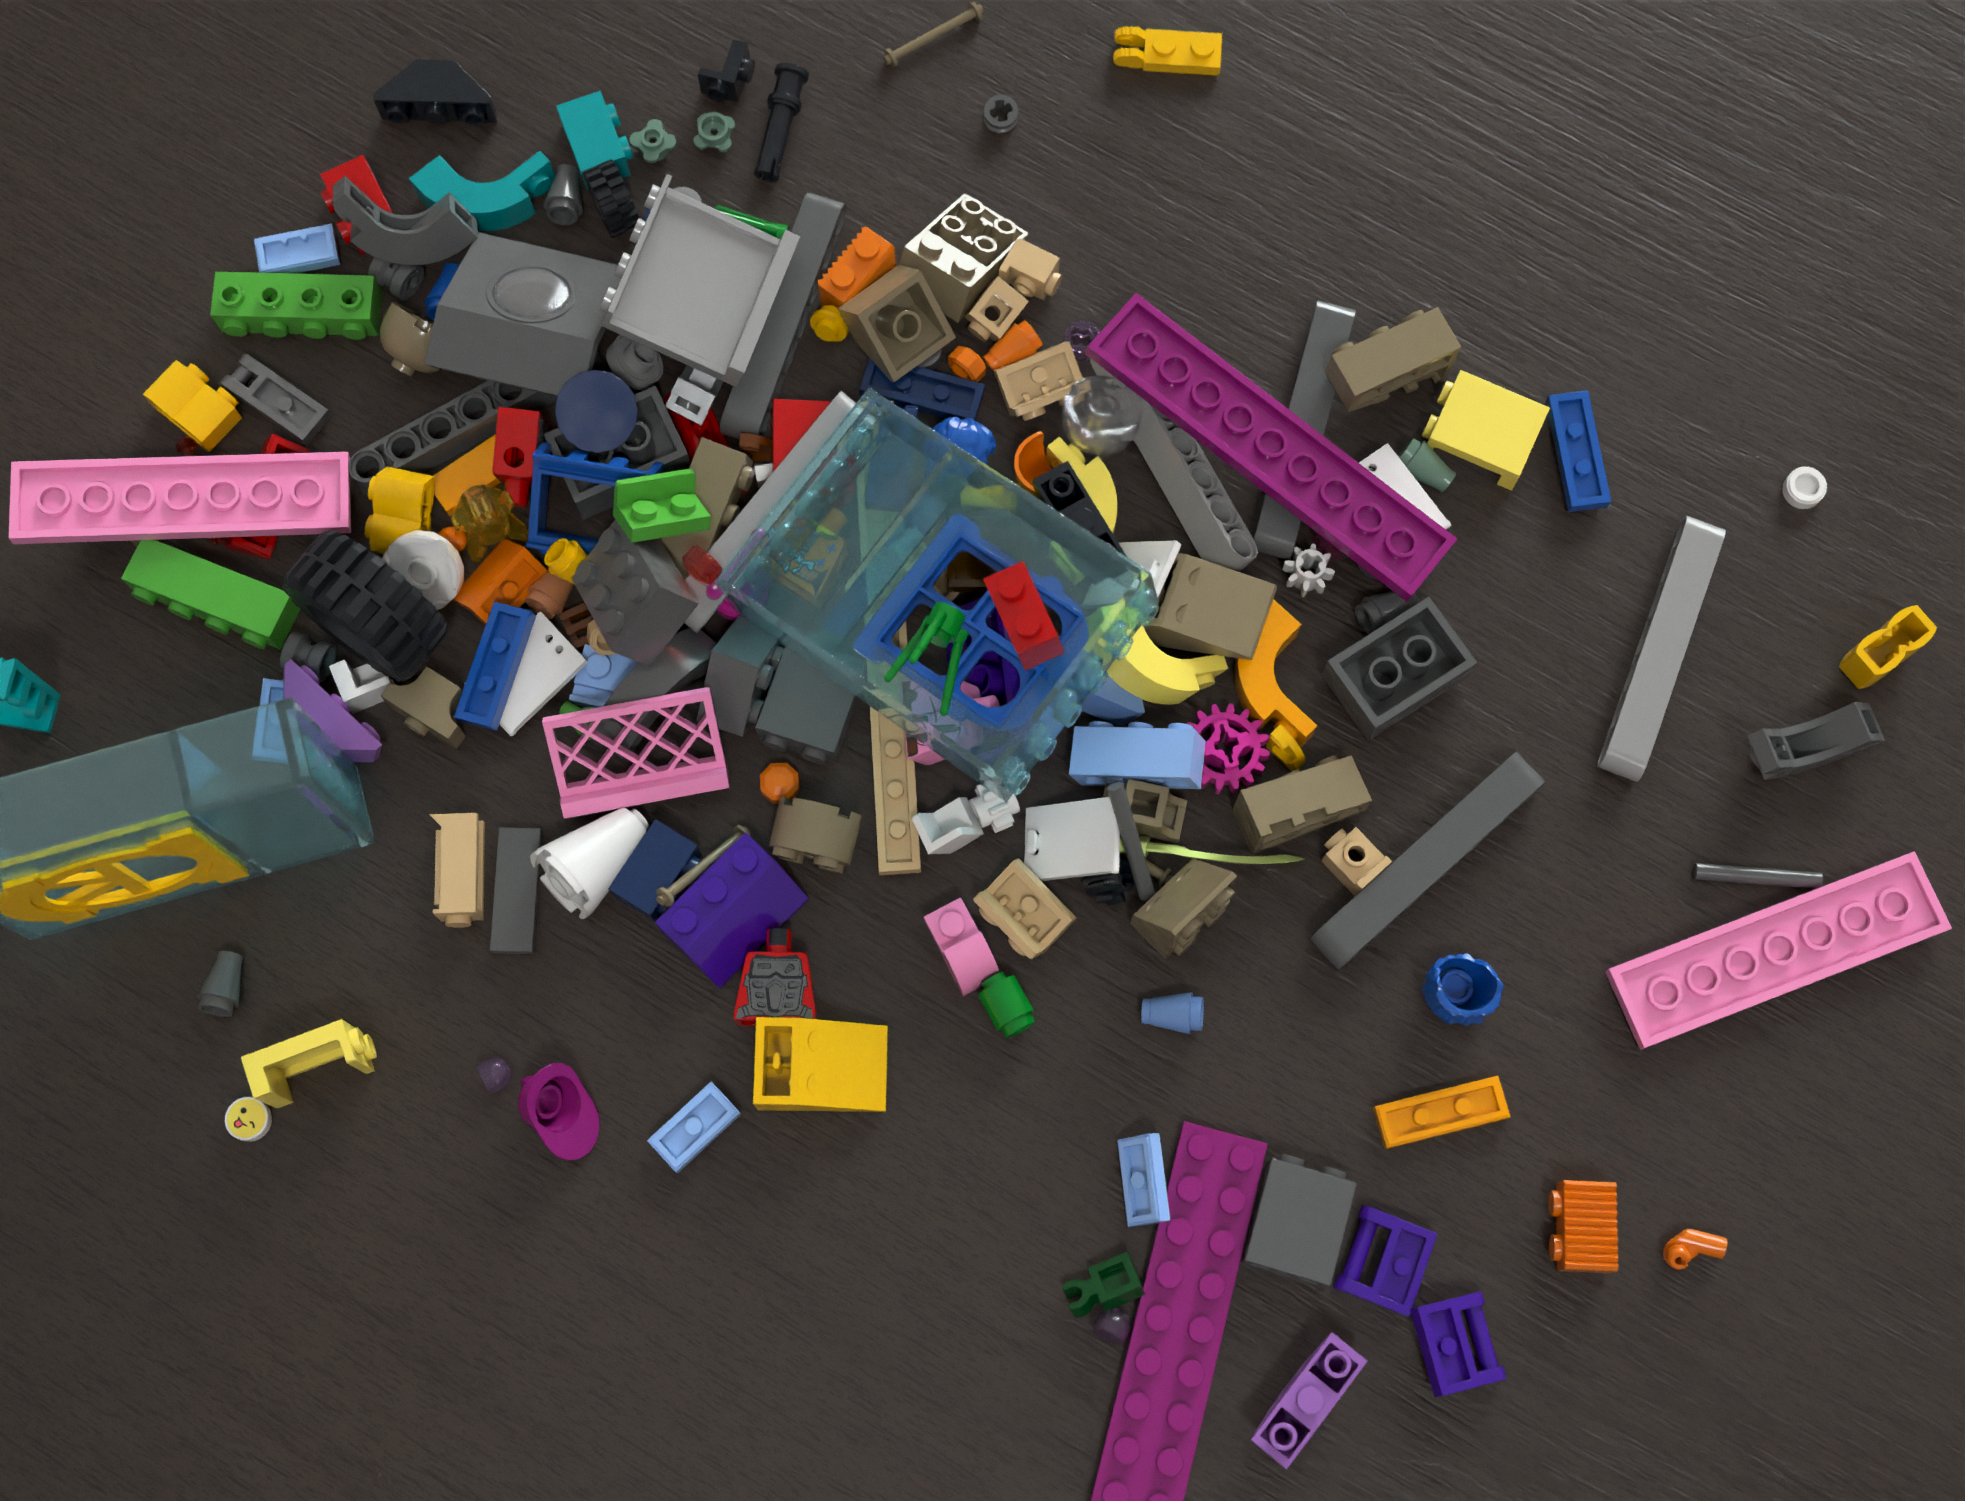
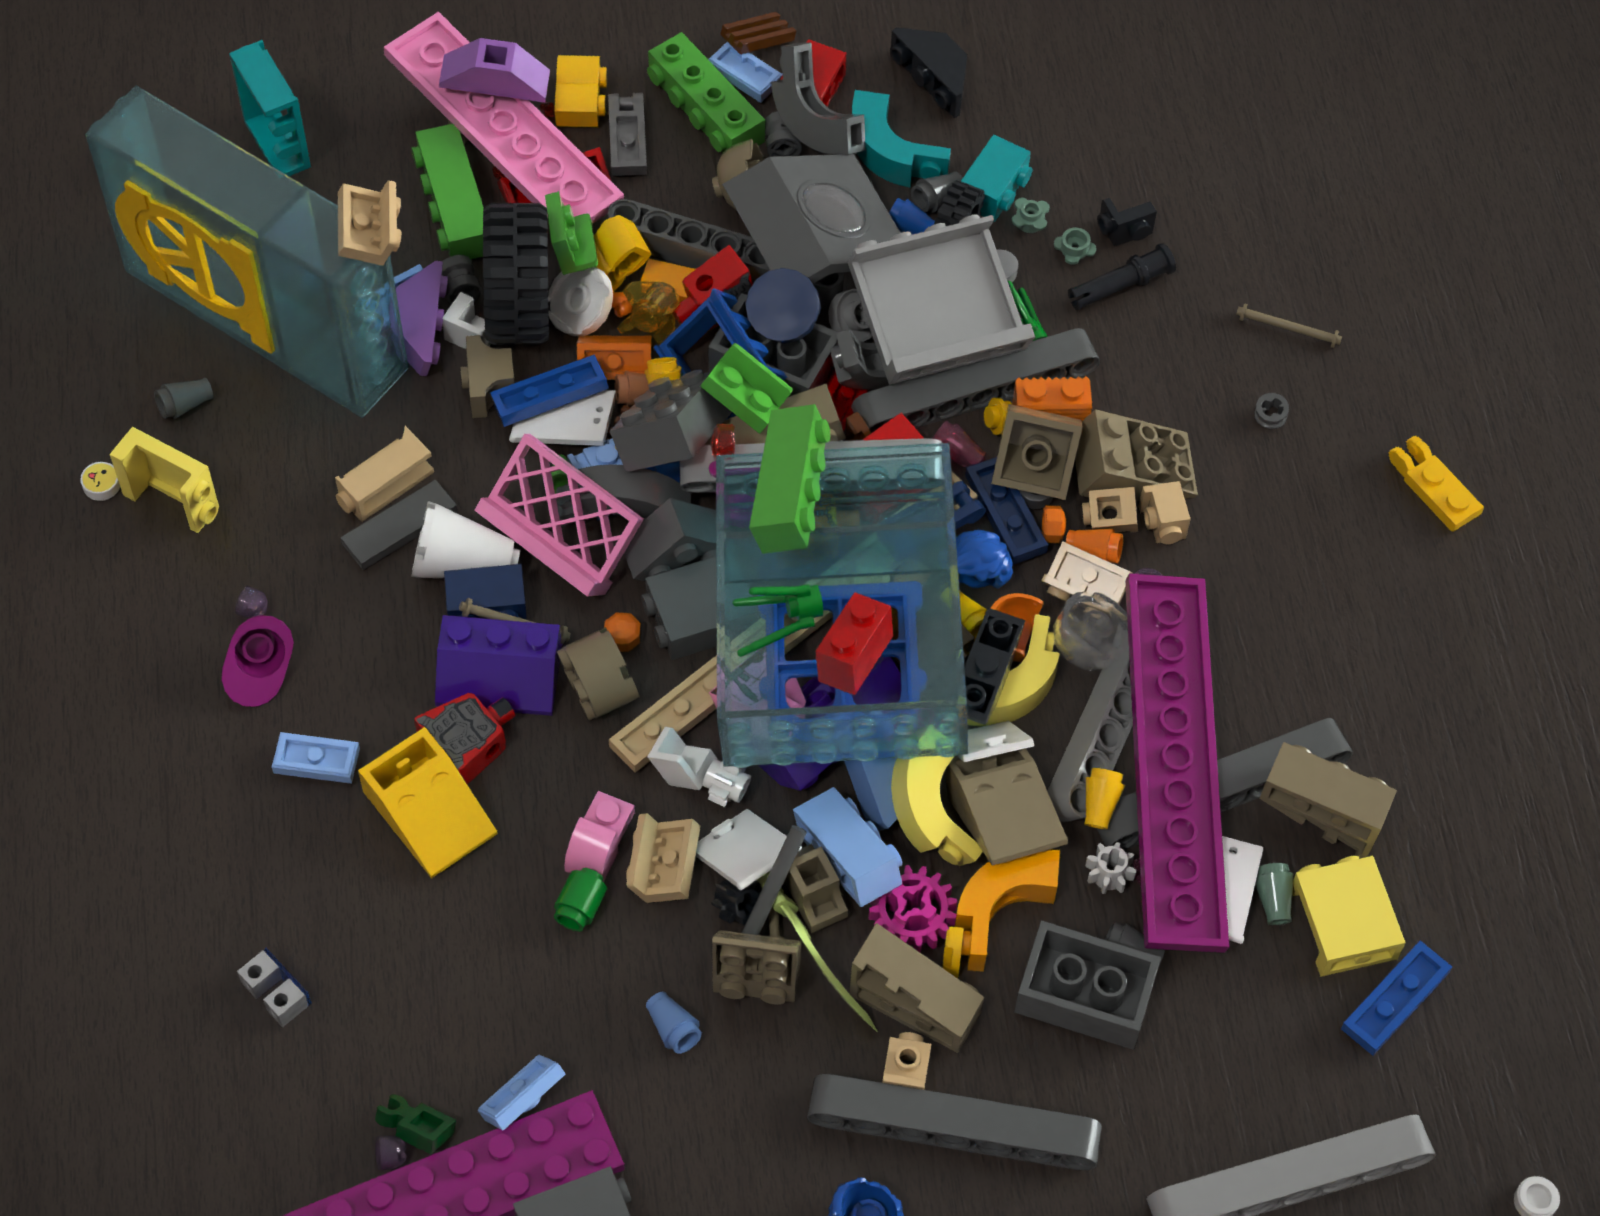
camera: 50 degrees right, 15 degrees down
(128, 463) = (496, 70): none -> medium lavender slope
(261, 209) = (757, 33): none -> reddish brown tile
(272, 704) = (368, 223): none -> tan bracket
(368, 527) = (570, 236): none -> bright green bracket
(579, 237) = (909, 217): none -> blue cone
(806, 542) = (789, 479): none -> bright green brick
(828, 379) = (962, 447): none -> clear pink cone
(868, 1308) = (270, 972): none -> flat silver piece
(1255, 527) = (1102, 796): none -> yellow cone

